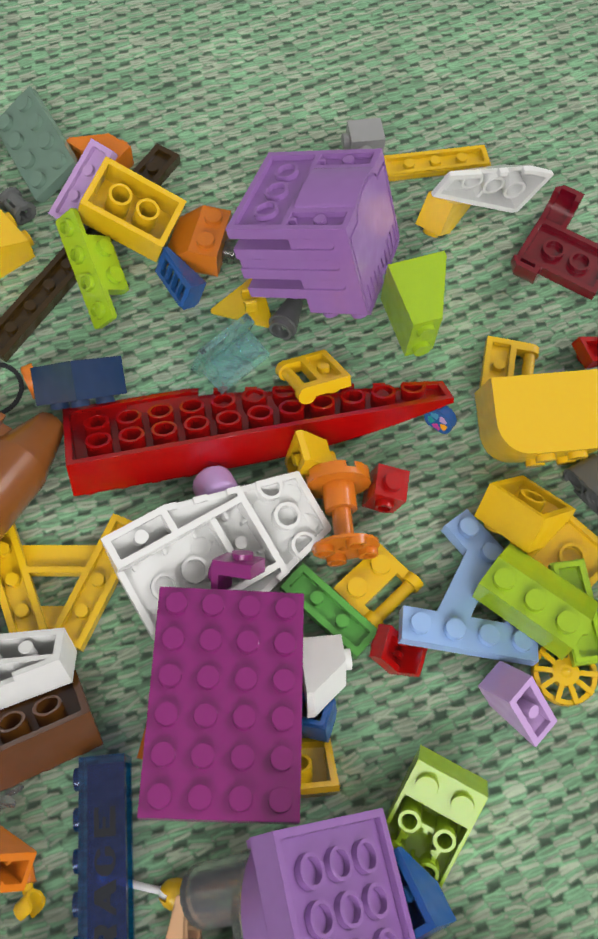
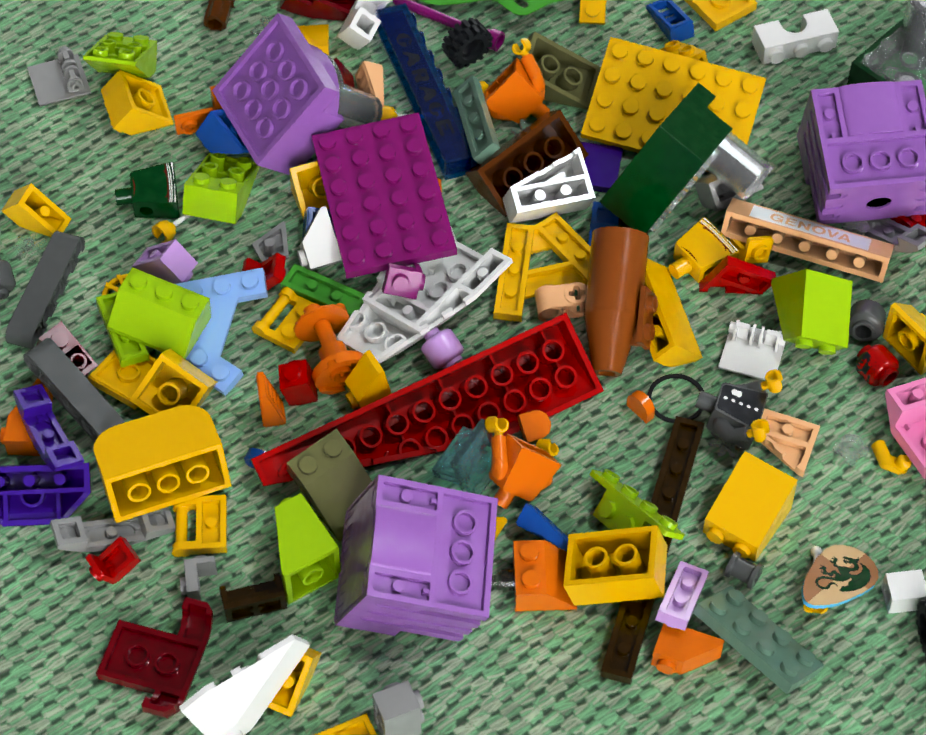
camera: 170 degrees right, 10 degrees down
(56, 822) = (476, 119): none -> sand green plate
(65, 522) = (560, 299): none -> light nougat piece
(78, 382) = (590, 392): dark blue brick -> none
(149, 387) = (534, 425): none -> orange tile
(174, 325) = (518, 465): none -> orange torso
(320, 368) = (376, 460): yellow plate -> none
(376, 361) = (329, 479): none -> olive slope
(377, 702) = (272, 242): none -> light grey piece
(423, 467) = (270, 402): none -> orange slope
(471, 287) = (254, 599): none -> dark brown hinge
(509, 763) = (167, 228): none -> yellow hinge
(524, 314) = (195, 568): none -> light grey bracket
(525, 828) = (151, 192): none -> dark green torso

